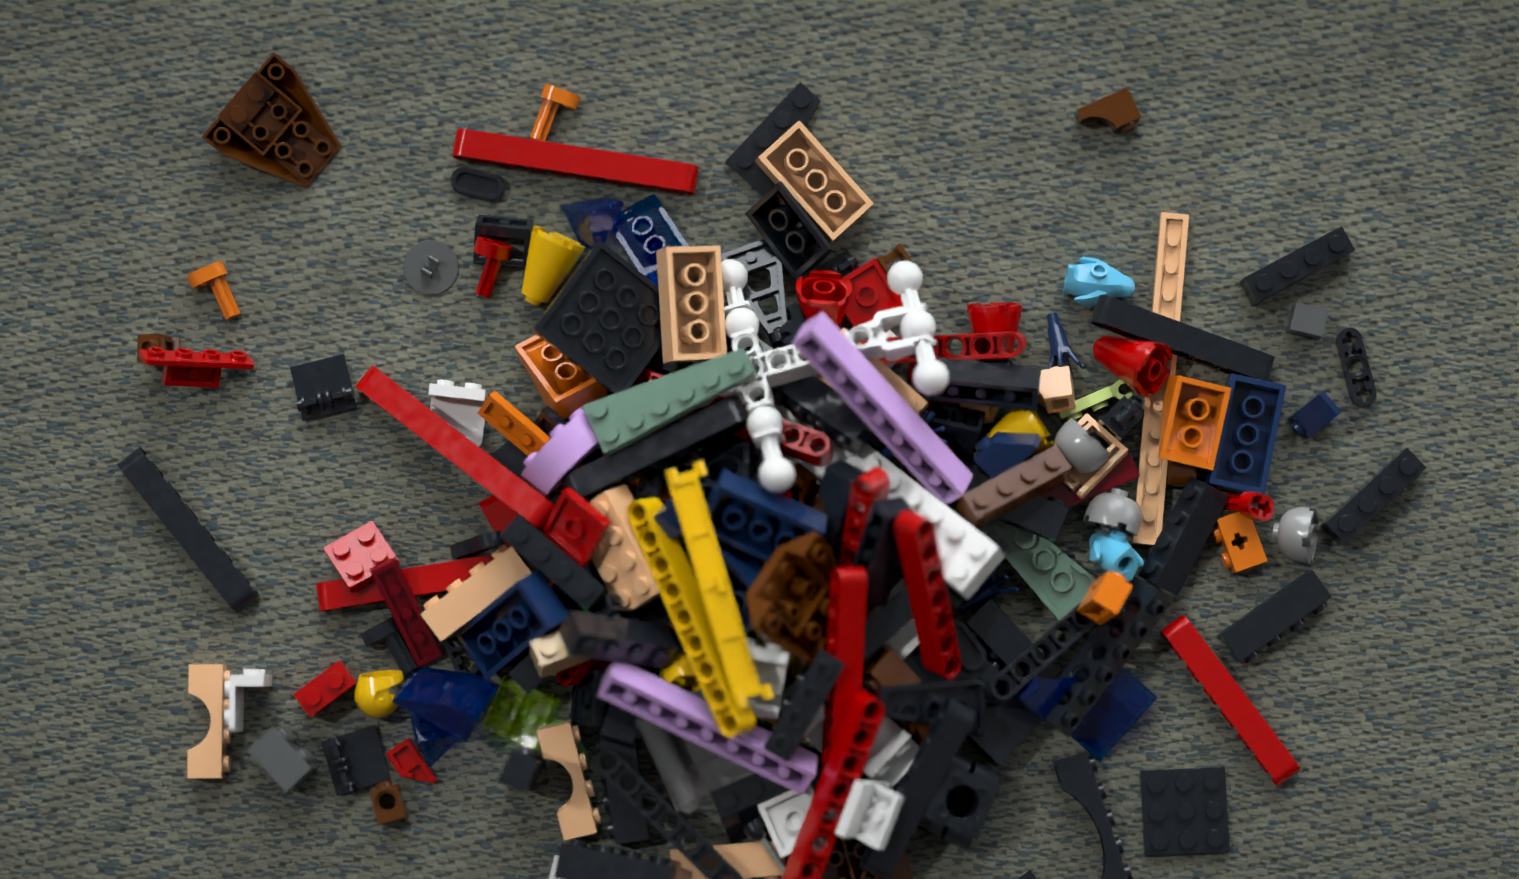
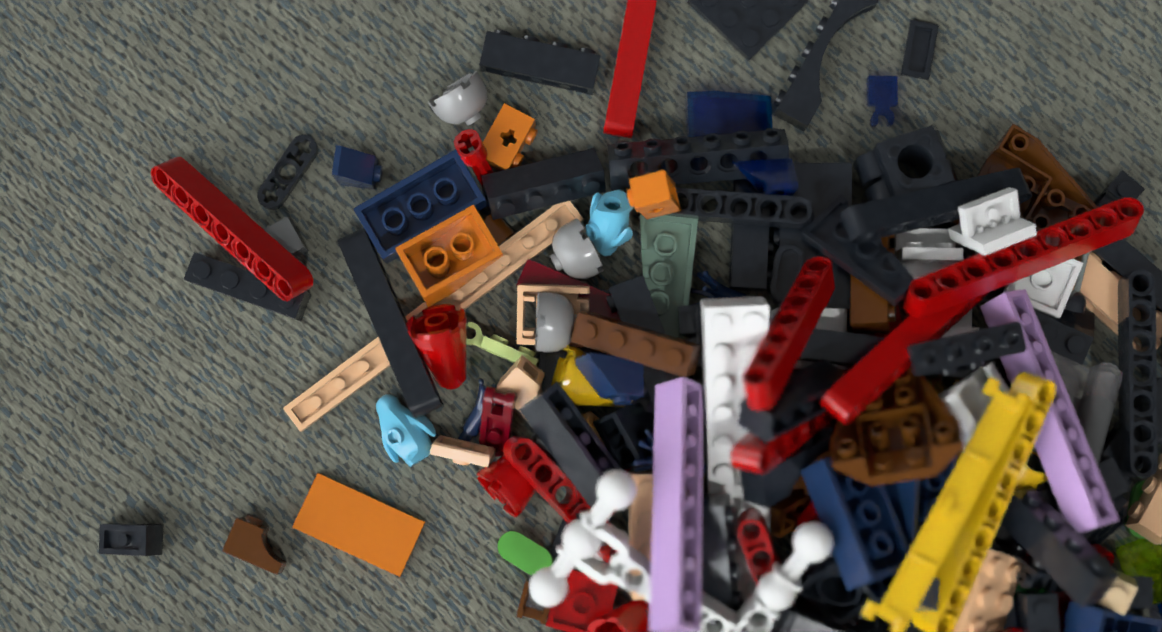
camera: 135 degrees left, 0 degrees up
(939, 288) = (524, 552): none -> bright green tile
(1027, 840) = (882, 94): none -> clear blue plate
(1045, 309) = (463, 451): none -> light nougat plate
(1046, 349) = (495, 420): none -> dark red plate
(1059, 195) = (359, 524): none -> orange tile
(1122, 417) = (496, 313): black brick -> none
(1191, 34) = (131, 539): none -> black plate
(1349, 290) = (232, 228): none -> red beam
(1373, 496) = (378, 69): black brick -> none

